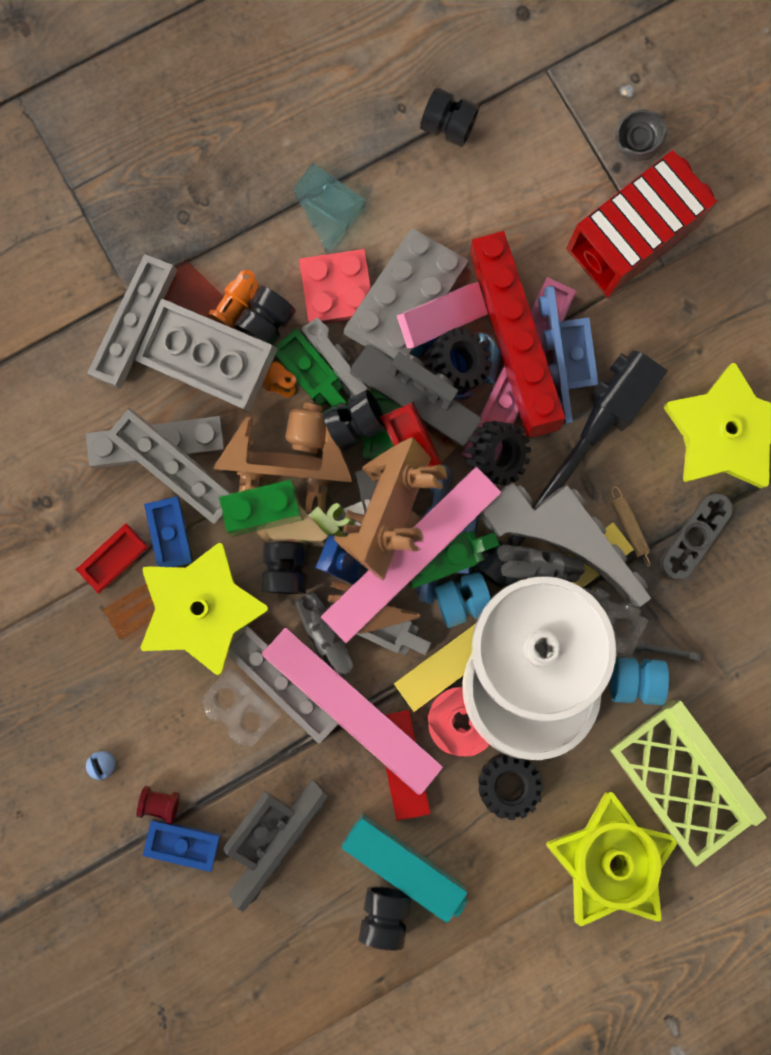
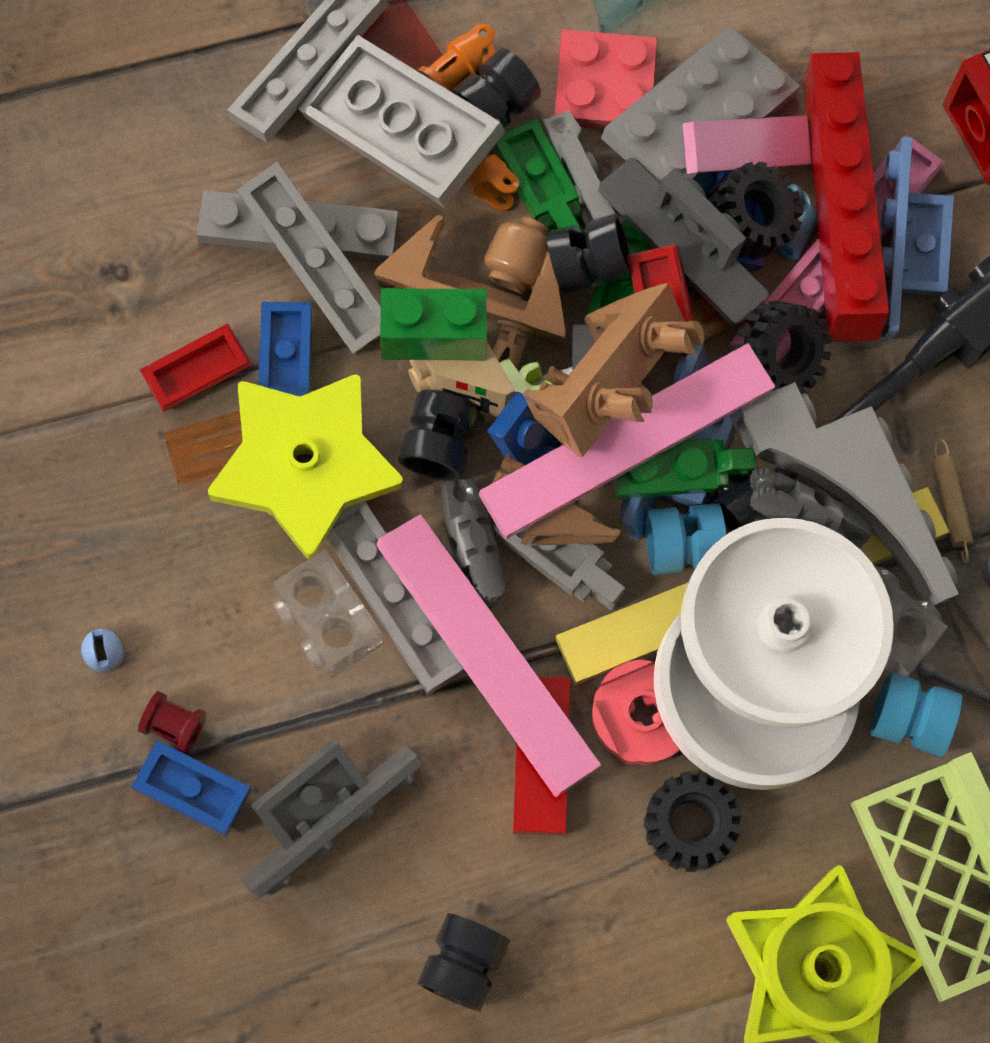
camera: 10 degrees right, 10 degrees down
(405, 868) = (511, 900): teal brick -> none

